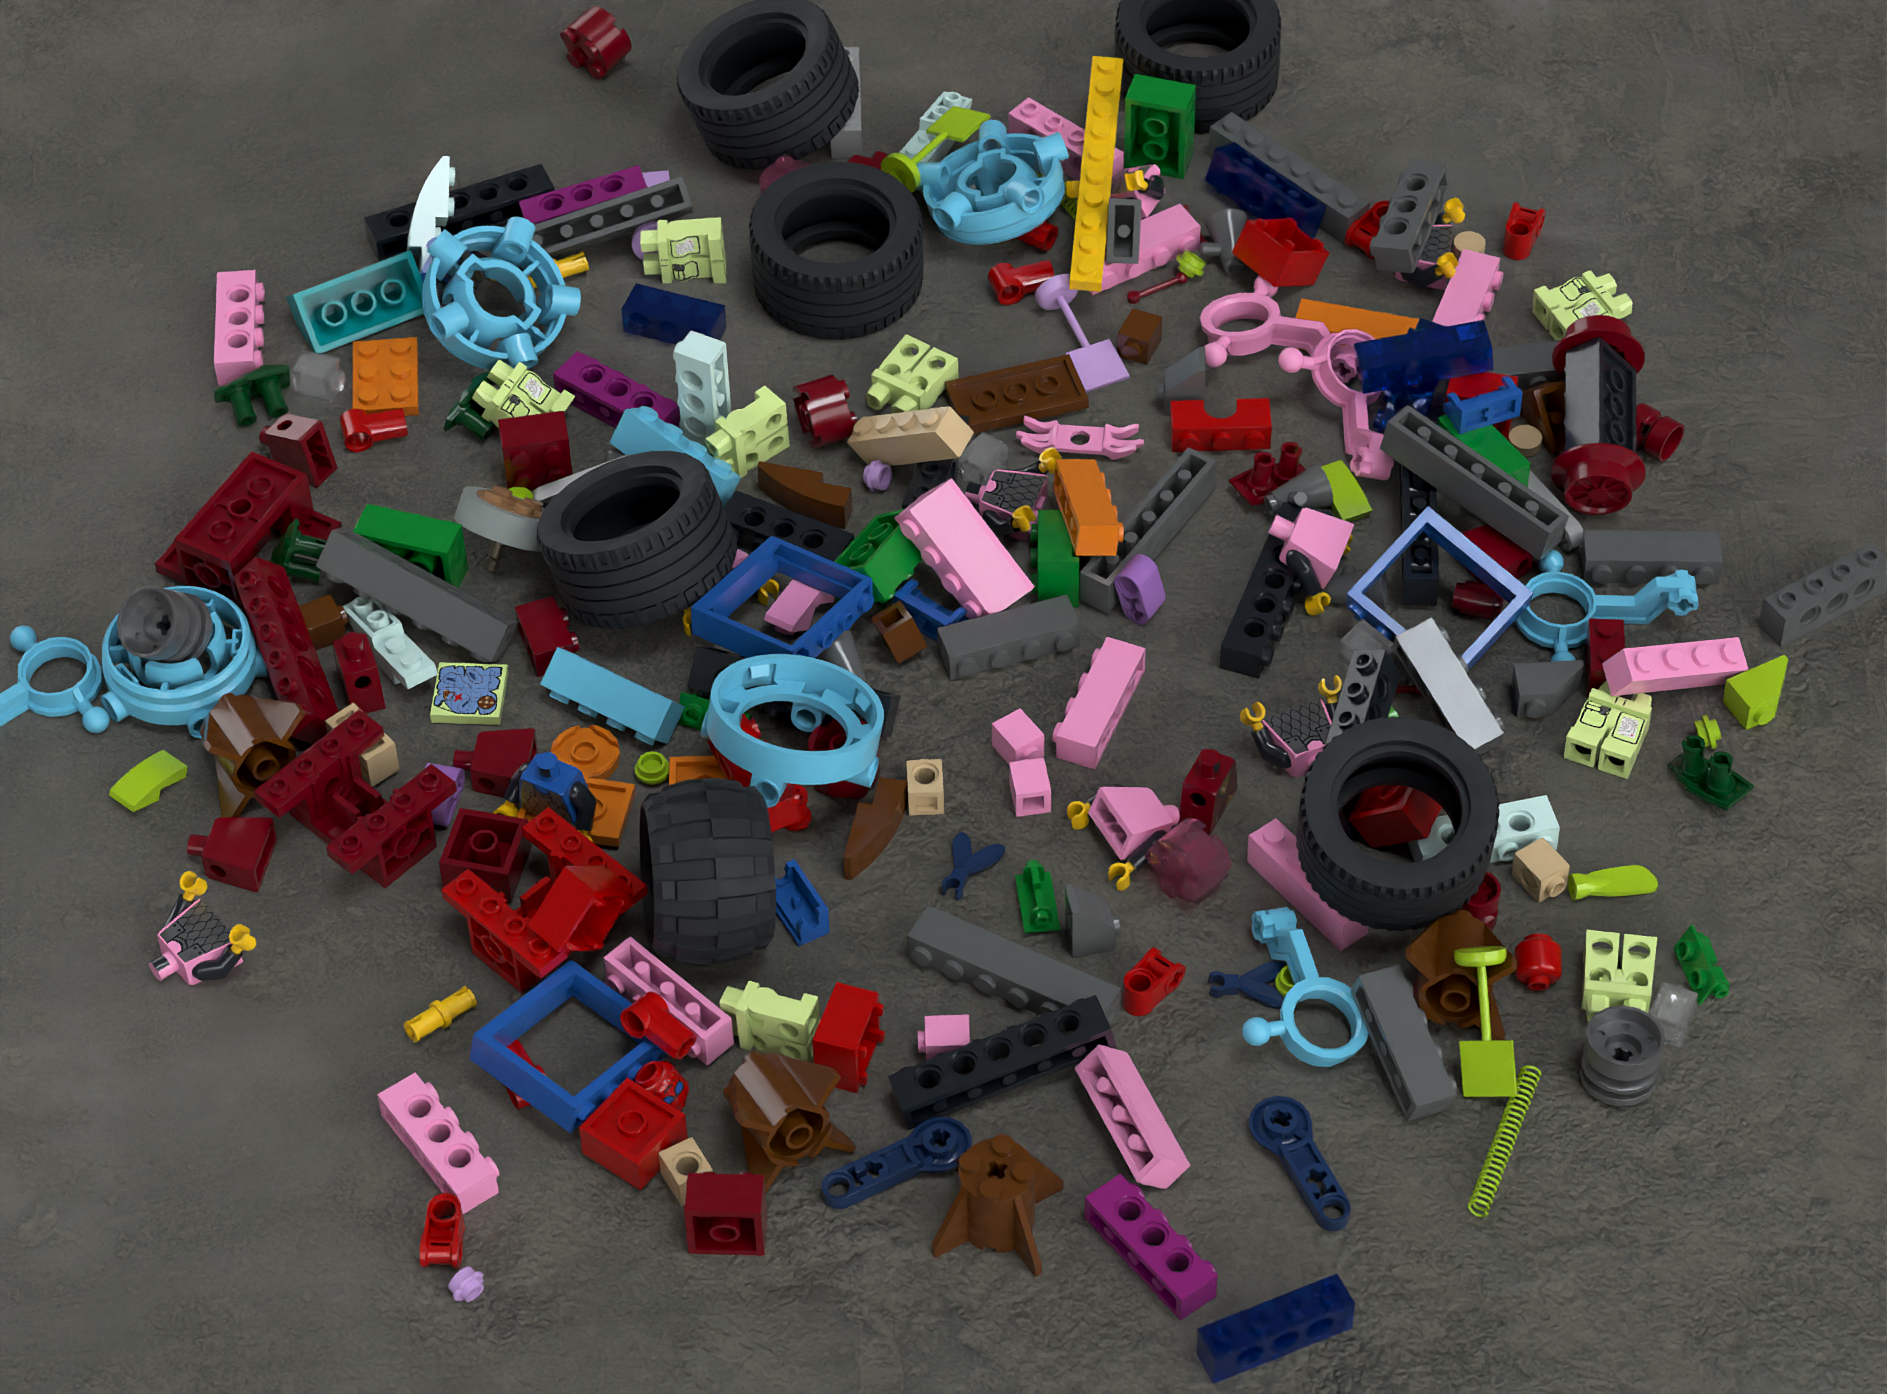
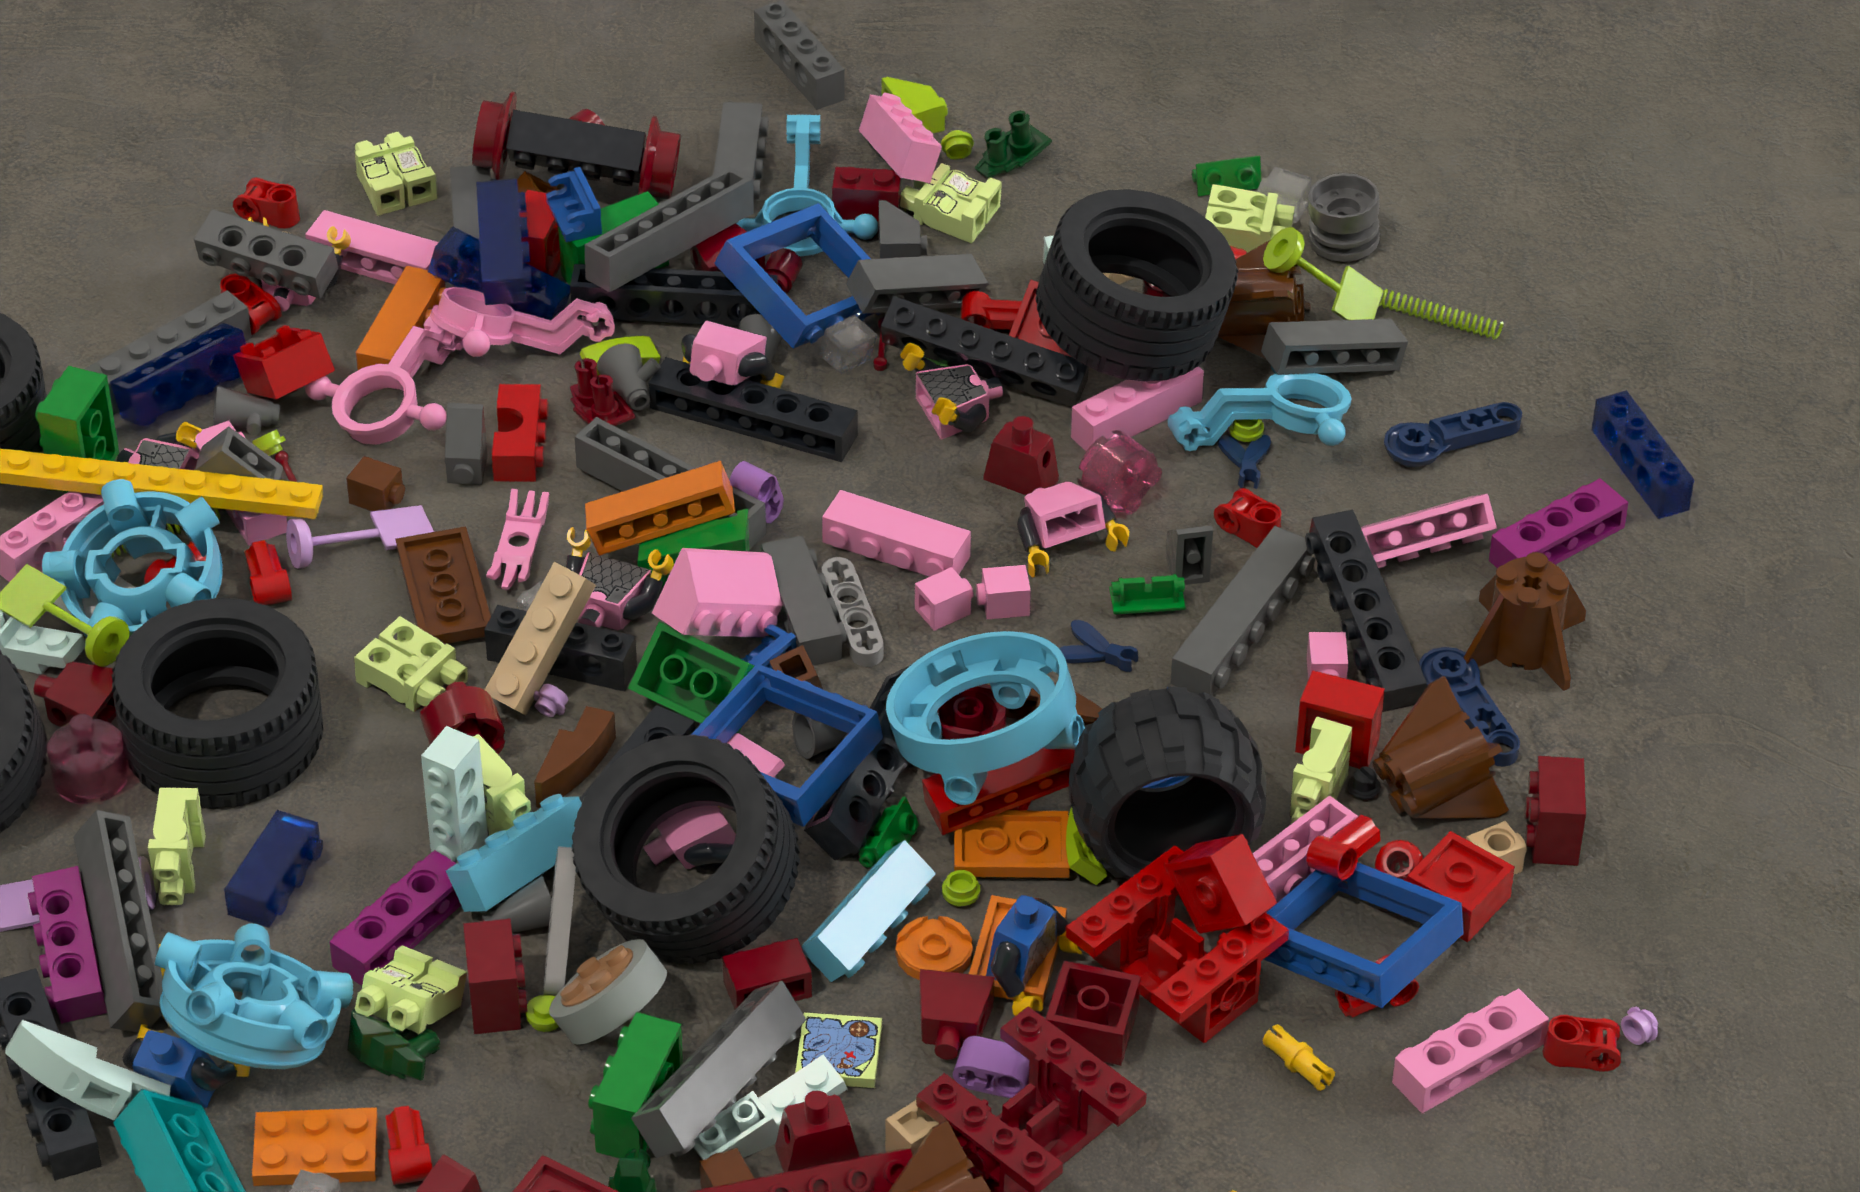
camera: 90 degrees left, 5 degrees down
(1007, 683) = (853, 611): none -> light grey beam

